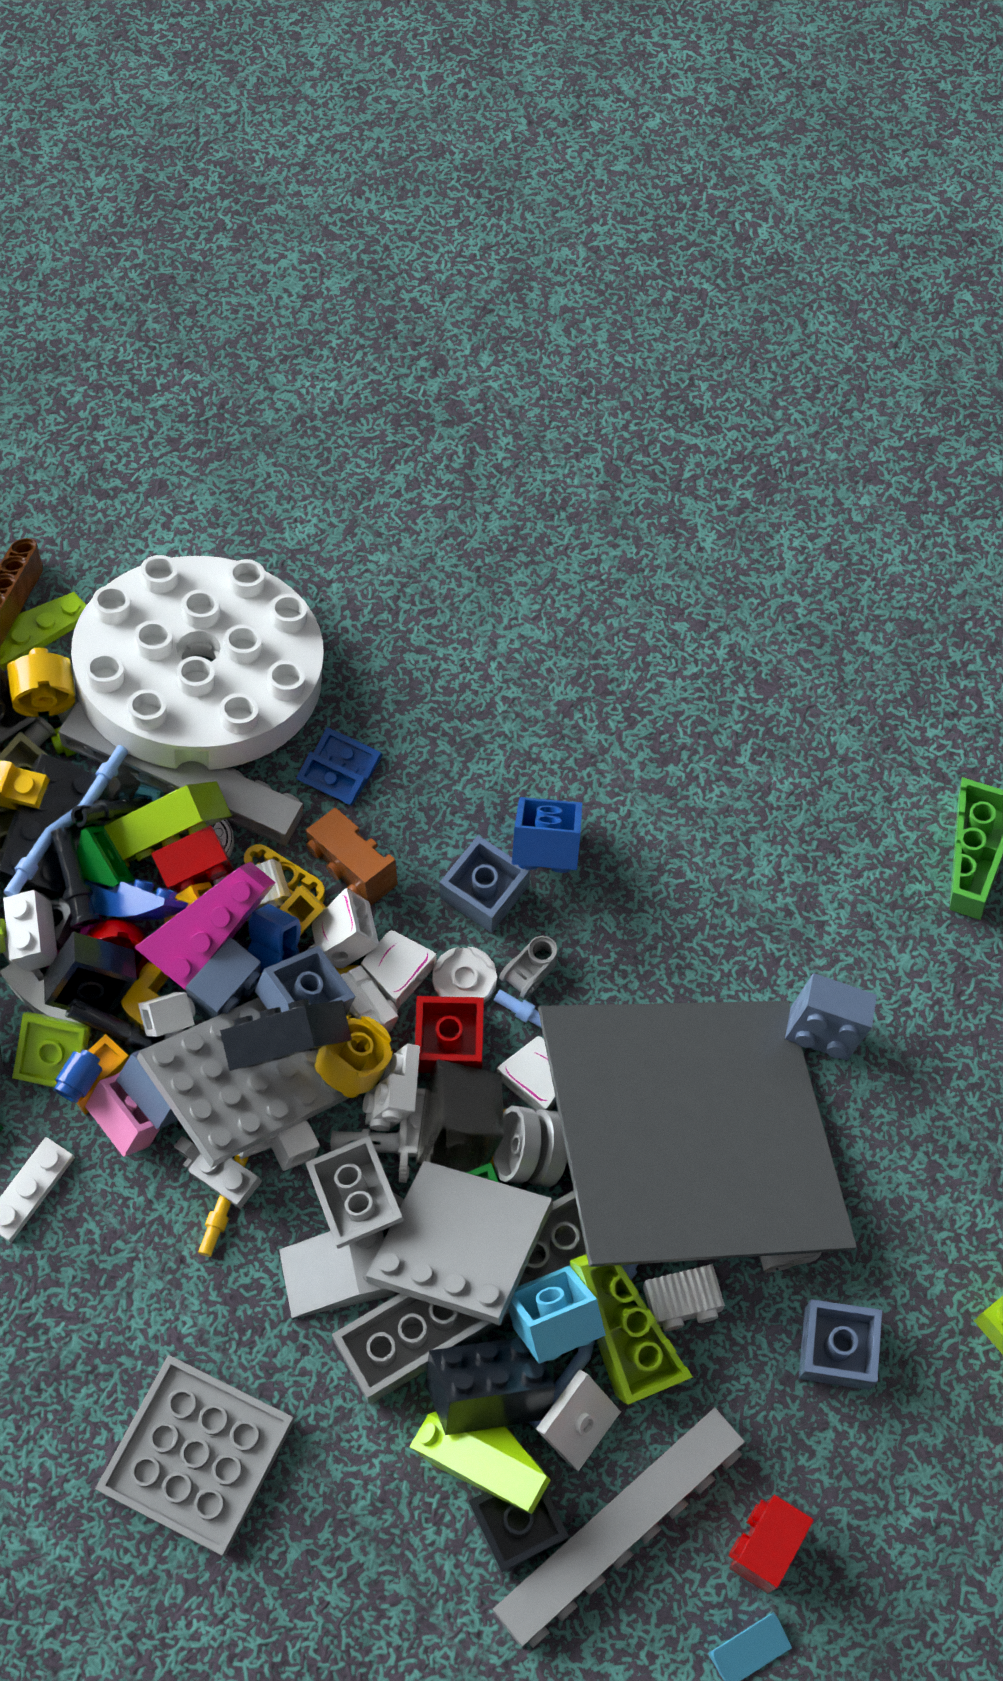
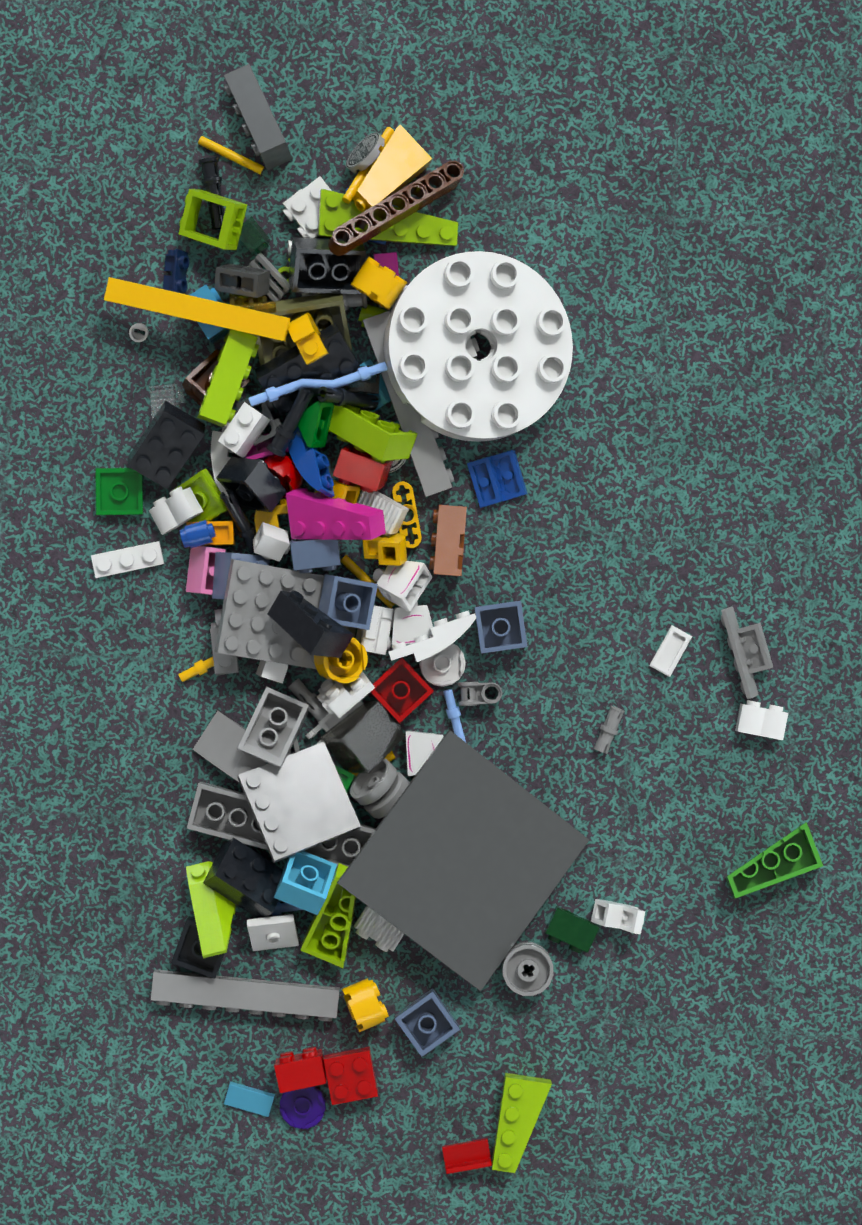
camera: 45 degrees right, 25 degrees up
(32, 1085) = (175, 510): none -> white brick
(196, 1455) = (90, 769): light grey plate -> none
(273, 935) = (359, 557): blue brick -> none
(434, 944) = (443, 634): none -> white slope
(547, 834) = (556, 636): blue brick -> none
(666, 763) = (670, 651): none -> white tile
(690, 881) = (609, 729): none -> light grey pin
(736, 690) = (749, 650): none -> light grey bracket
(757, 1394) = (364, 1005): none -> yellow brick
(805, 1600) = (299, 1101): none -> dark purple tile
(817, 739) = (762, 721): none -> white brick
(830, 1017) = (592, 874): sand blue brick -> none
(830, 1492) = (350, 1075): none -> red brick
(871, 1100) = (571, 929): none -> dark green brick
(880, 1163) = (529, 982): none -> light grey wheel
(901, 1038) = (618, 916): none -> white brick

